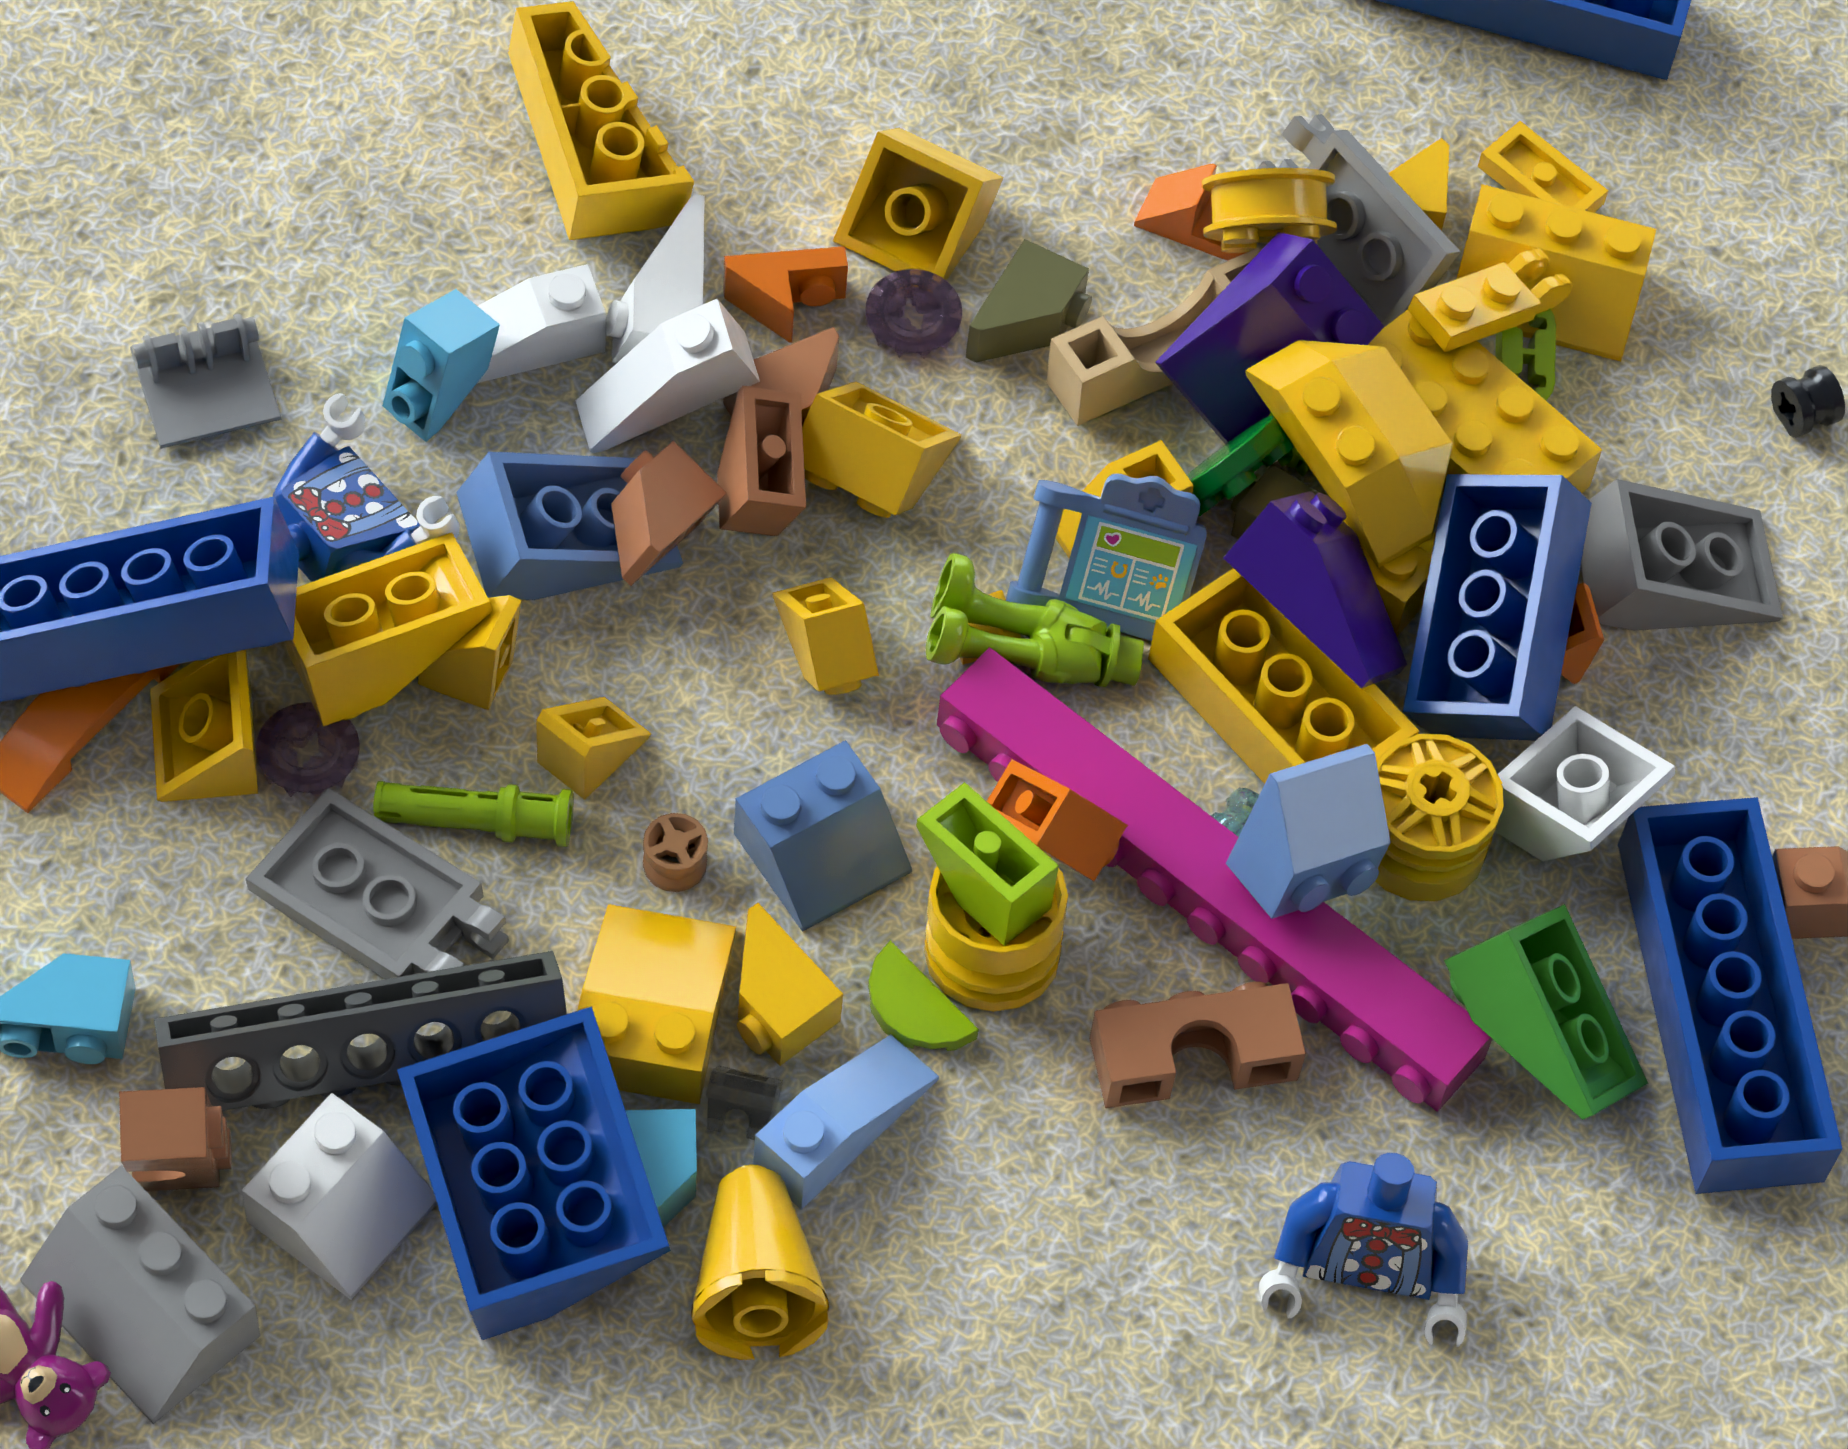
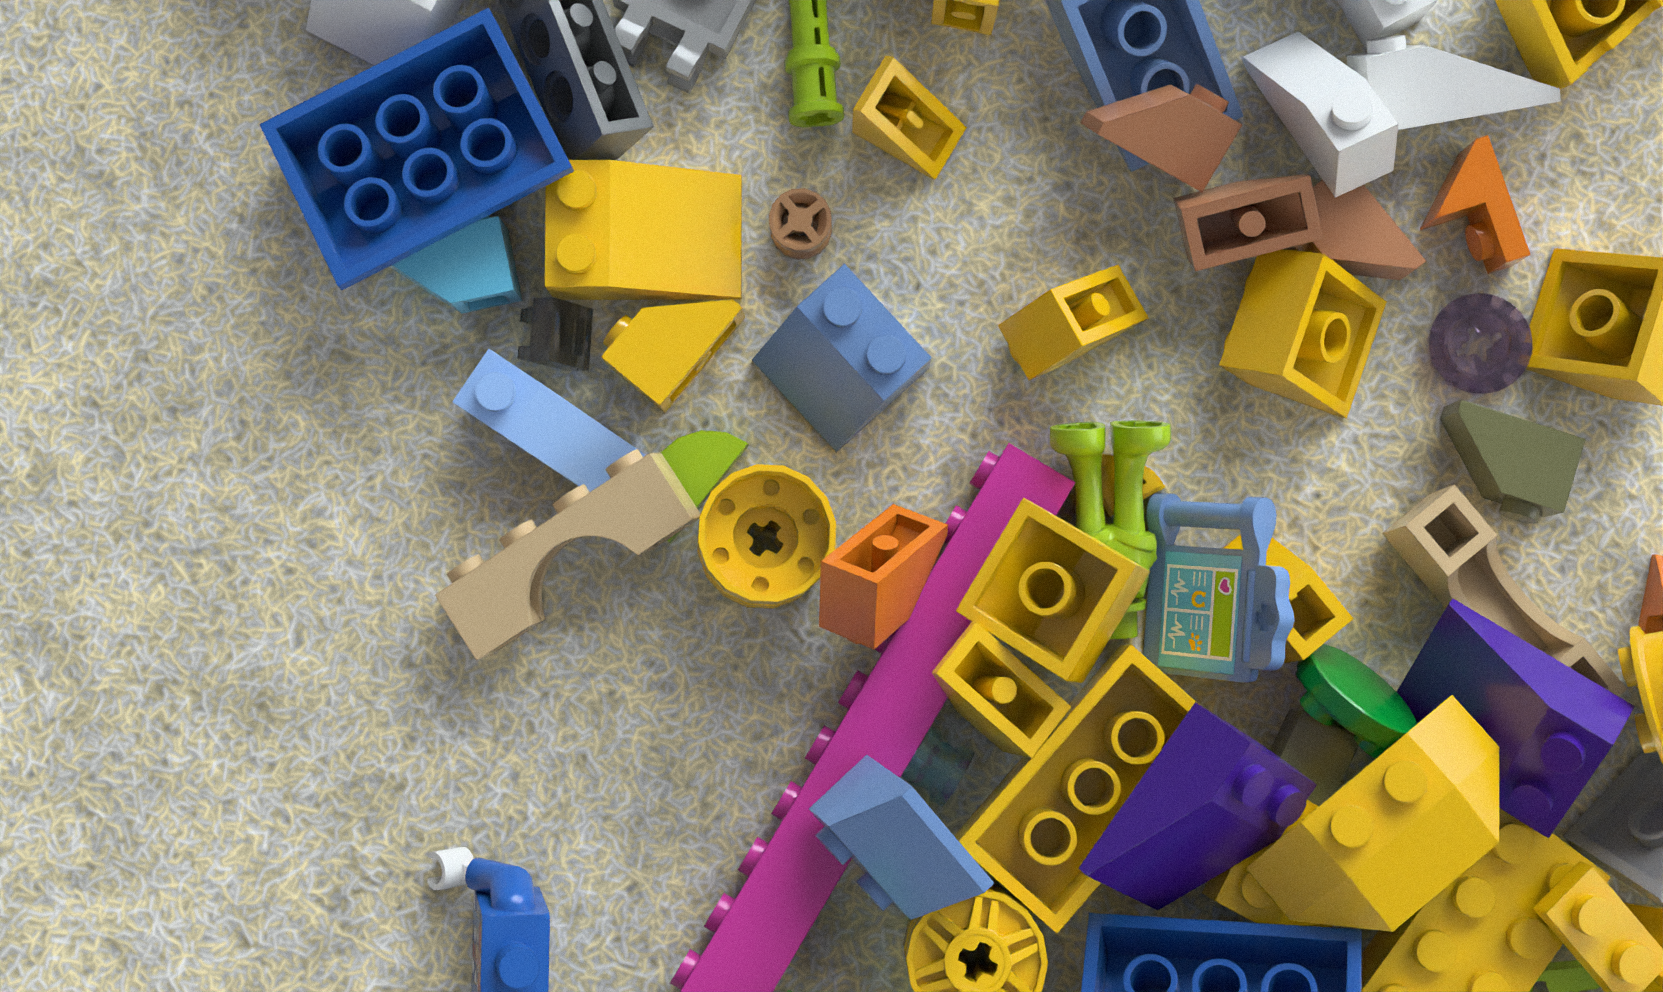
camera: 90 degrees right, 25 degrees up
(757, 1271) = (379, 375): yellow cone -> none
(988, 863) = (787, 511): lime slope -> none
(1007, 1185) = (503, 596): none -> tan arch
(1096, 670) = (1052, 591): none -> yellow slope
(1189, 741) = (999, 693): none -> yellow slope
(1248, 1028) = (715, 804): nougat arch -> none

